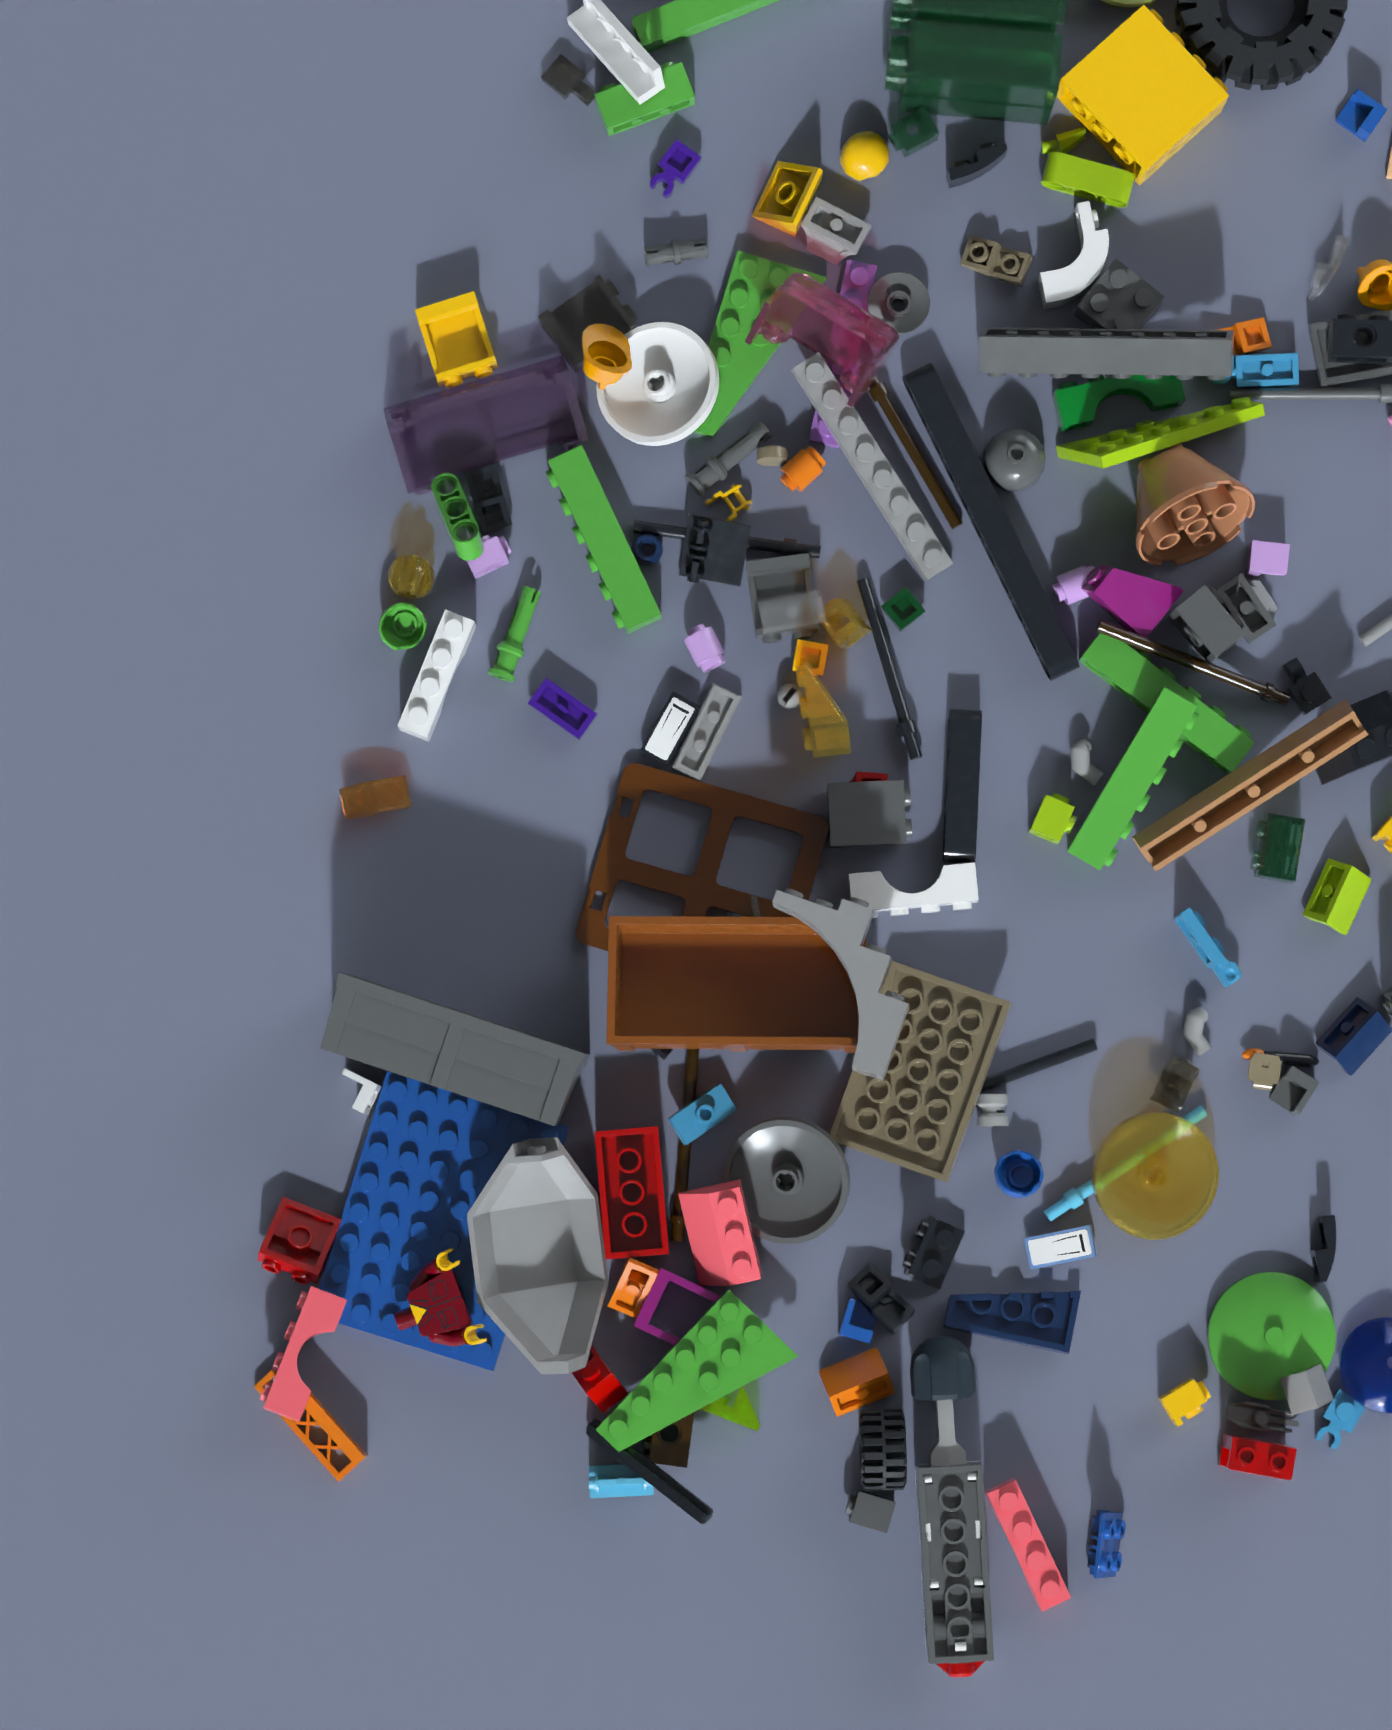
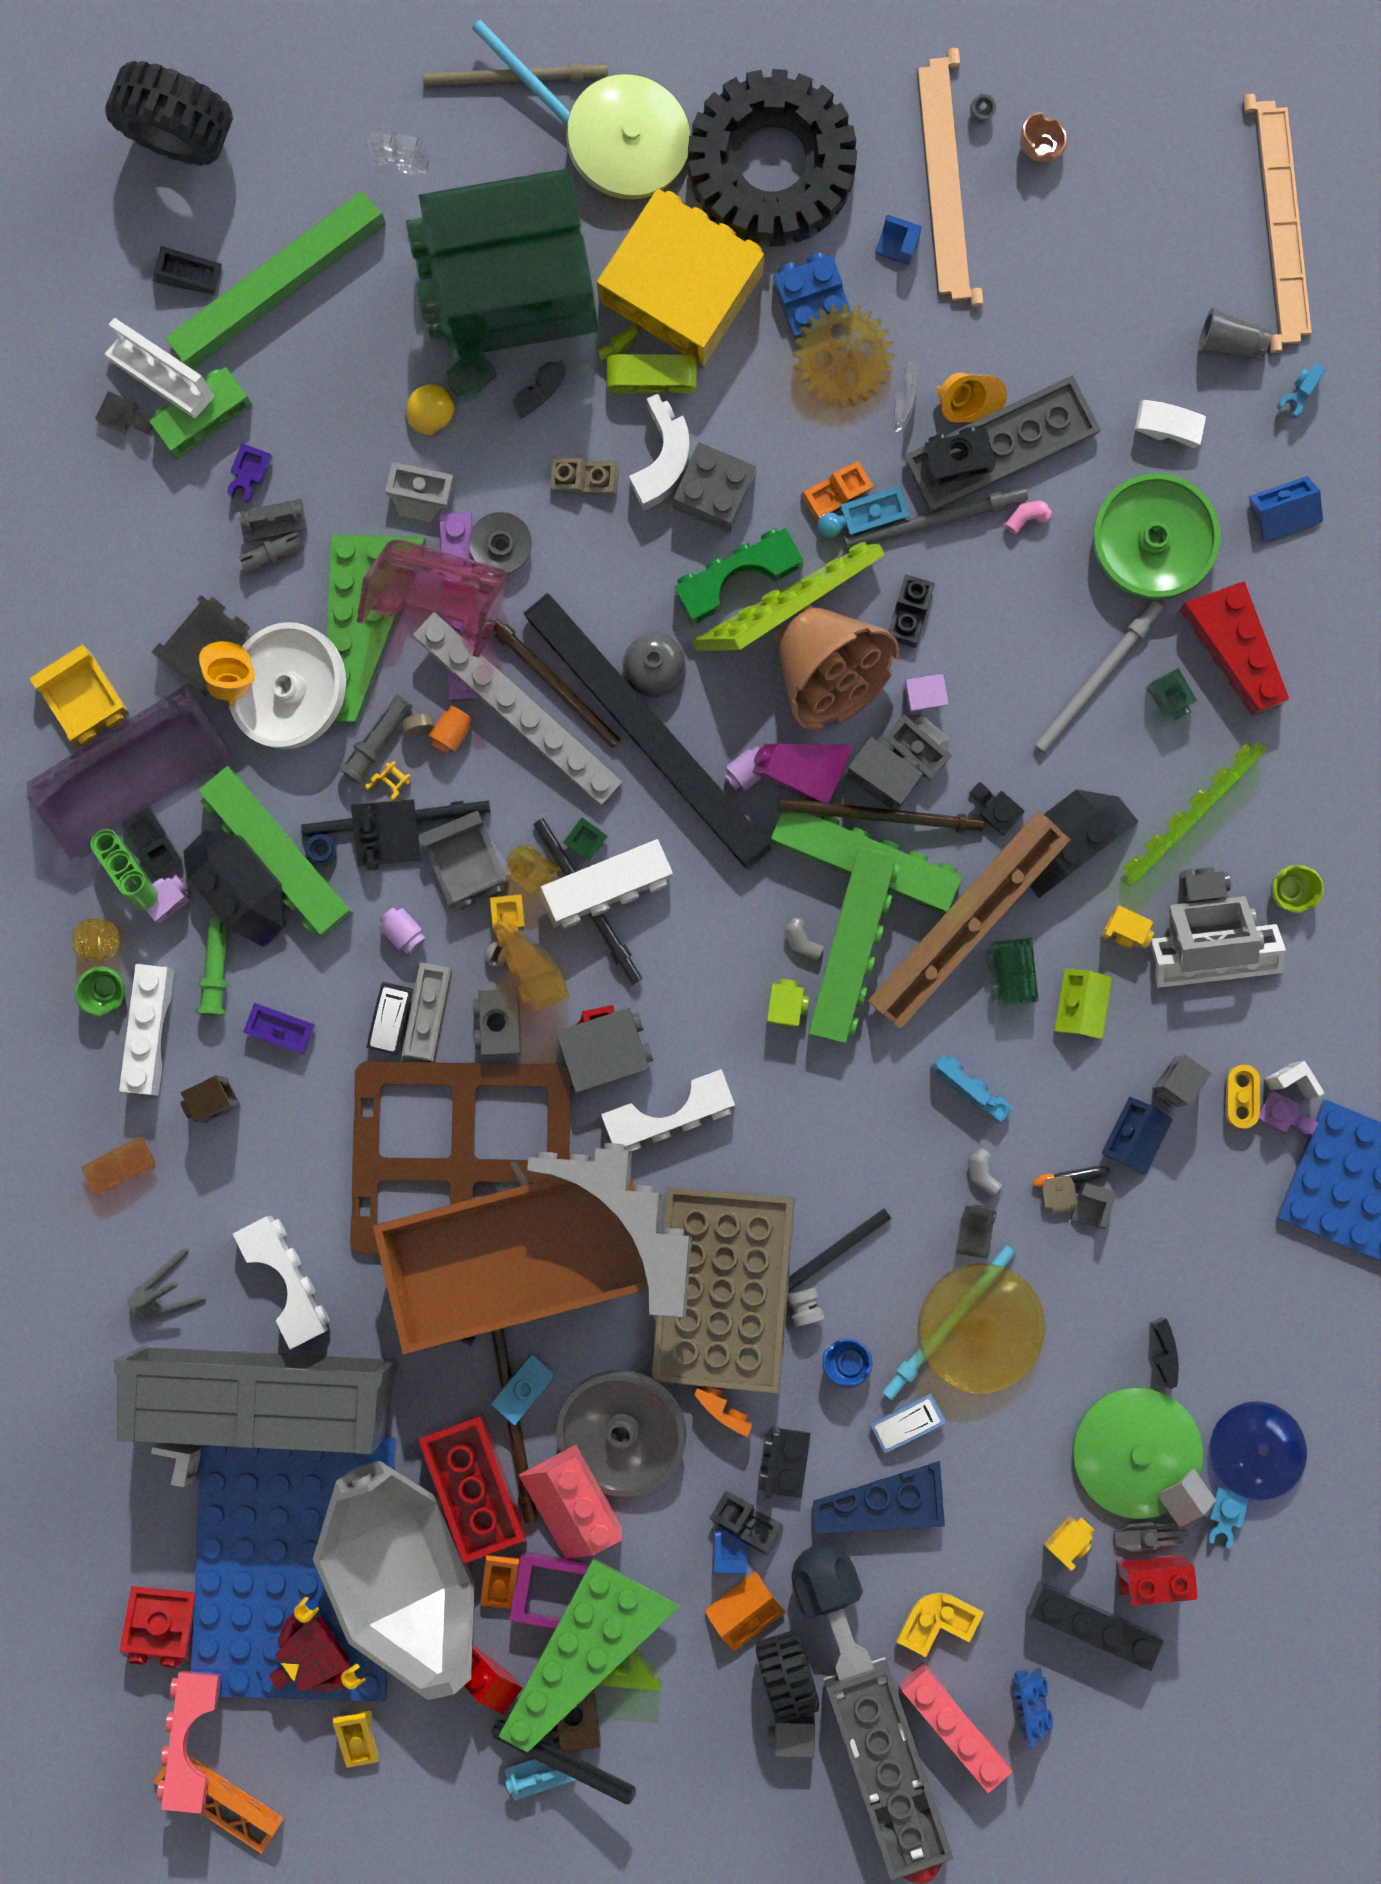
camera: 10 degrees left, 0 degrees up
(368, 932) = (147, 1300): none -> dark grey plant
(458, 1397) = (356, 1738): none -> yellow slope
(479, 757) = (209, 1099): none -> dark brown brick
(510, 989) = (301, 1316): none -> white arch
(560, 560) = (236, 885): none -> black wedge
(686, 221) = (273, 520): none -> dark grey hinge
(777, 741) = (509, 1038): none -> dark grey brick
(788, 196) = (366, 468): yellow slope -> none
(881, 1177) = (714, 1403): none -> orange slope
(912, 656) = (606, 883): none -> white brick
(962, 786) = (689, 996): black beam -> none
(1036, 1432) = (938, 1612): none -> yellow plate
(1106, 352) = (714, 535): dark grey brick -> none
(1185, 1485) = (1094, 1625): none -> black brick
(1263, 146) = (808, 289): none -> blue plate
(1275, 475) = (911, 610): none -> black slope
(1296, 233) = (819, 340): none -> clear yellow gear

